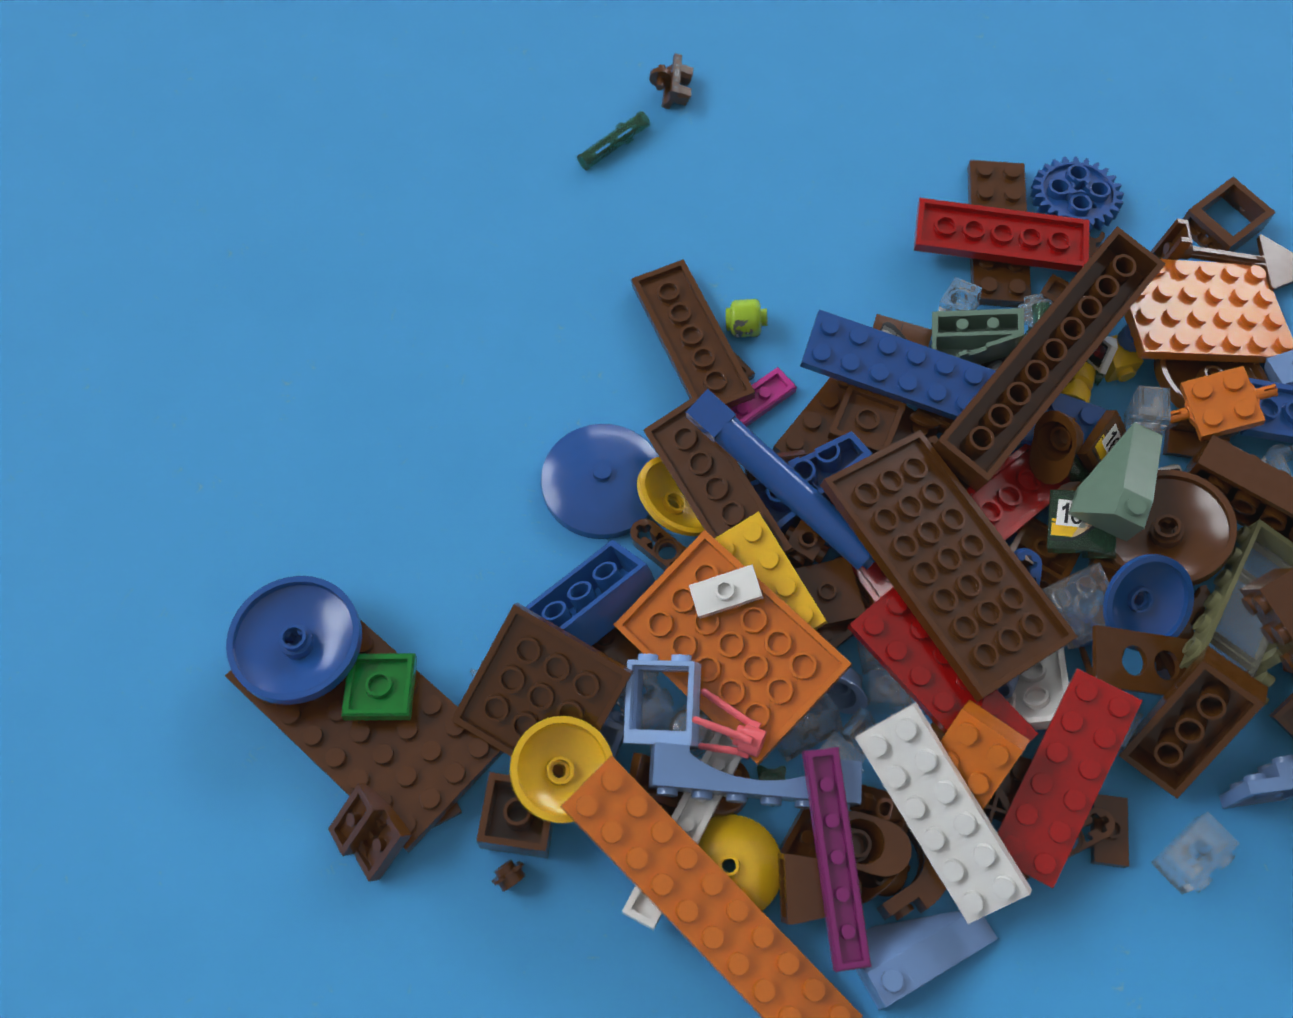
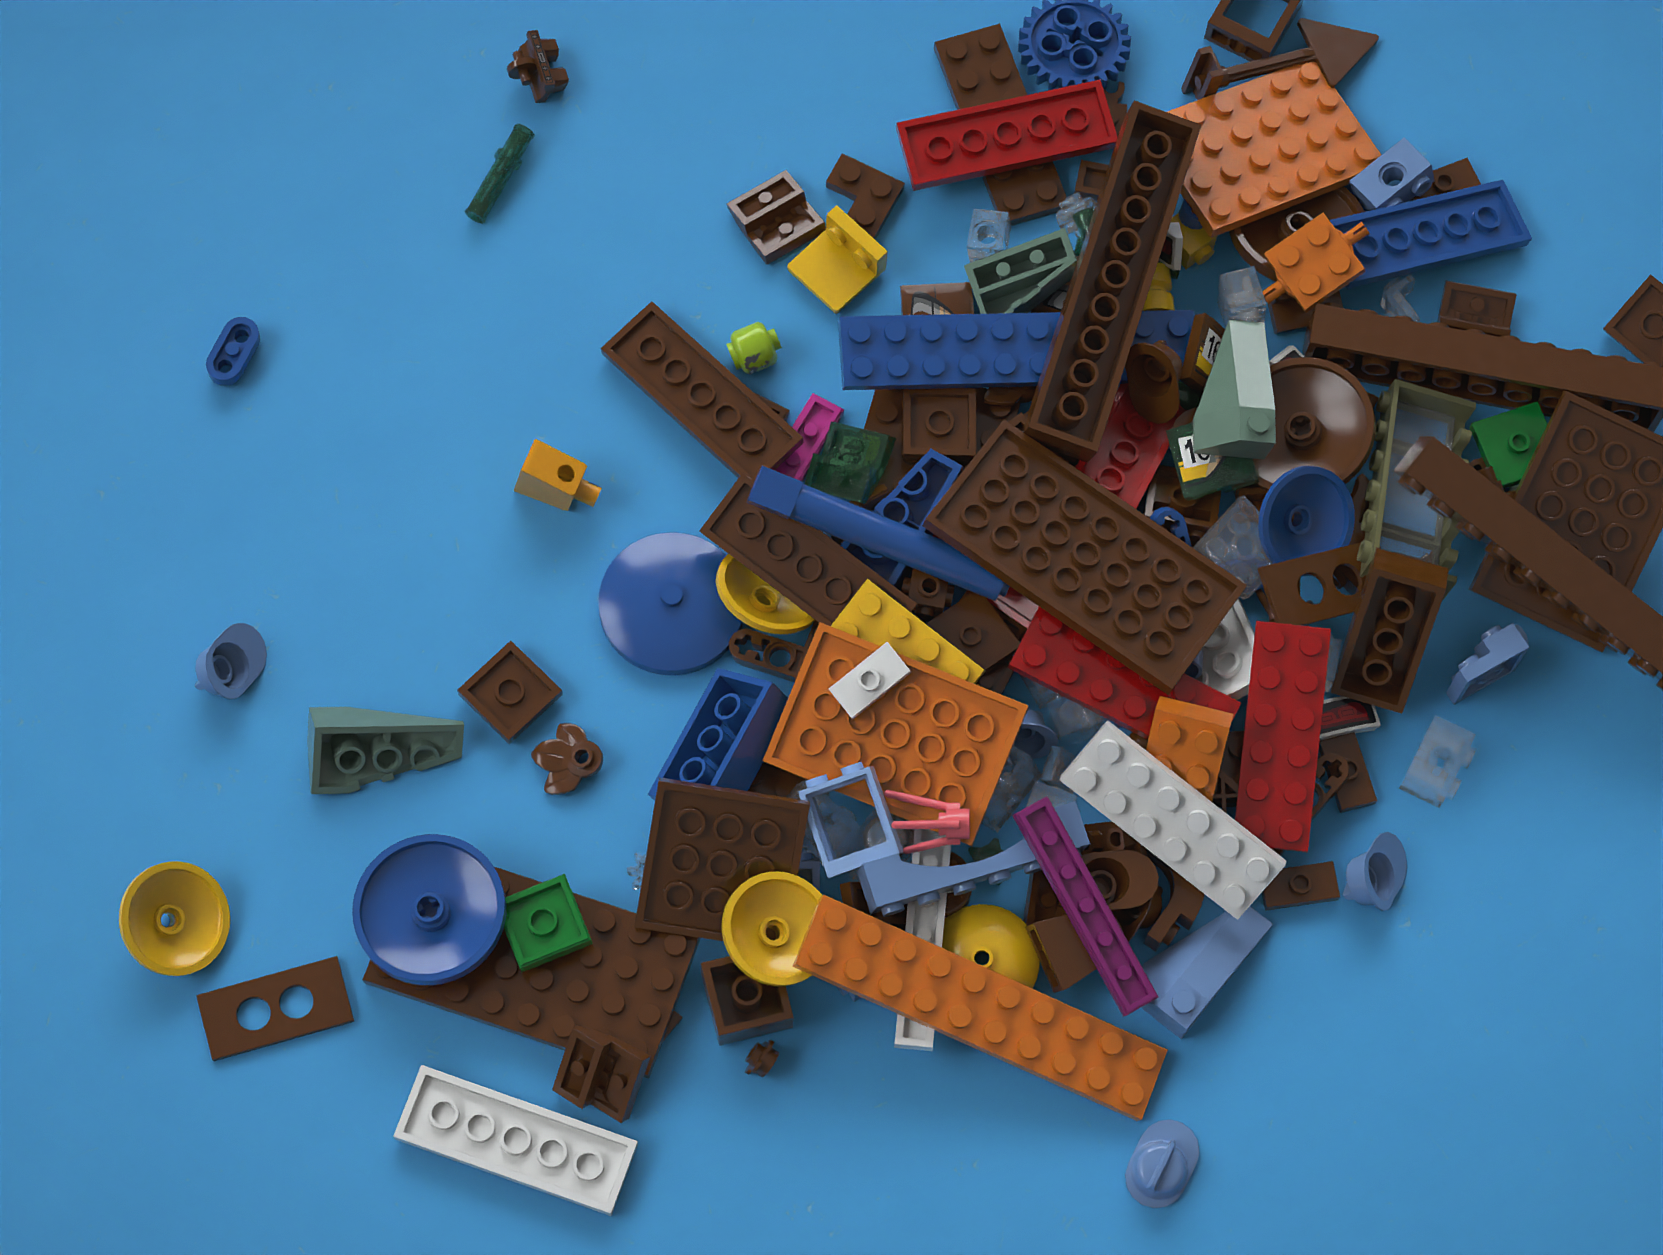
camera: 25 degrees left, 5 degrees up
(97, 544) = (196, 914): none -> yellow dish
(110, 653) = (221, 1006): none -> reddish brown piece
(253, 397) = (231, 661): none -> medium blue piece
(278, 861) = (516, 1140): none -> white plate
(319, 497) = (367, 745): none -> sand green wedge
(367, 190) = (232, 353): none -> blue plate
(447, 499) = (510, 692): none -> reddish brown plate
(464, 564) = (562, 759): none -> reddish brown plate
(552, 353) = (555, 478): none -> light orange torso
(787, 424) = (850, 462): none -> clear green slope
(802, 237) = (776, 217): none -> reddish brown slope
(838, 281) = (839, 261): none -> yellow bracket
(880, 247) = (869, 188): none -> reddish brown plate
(1037, 916) = (1302, 886): none -> reddish brown plate
(1108, 932) = (1378, 873): none -> medium blue piece
(1127, 782) = (1346, 716): none -> slope

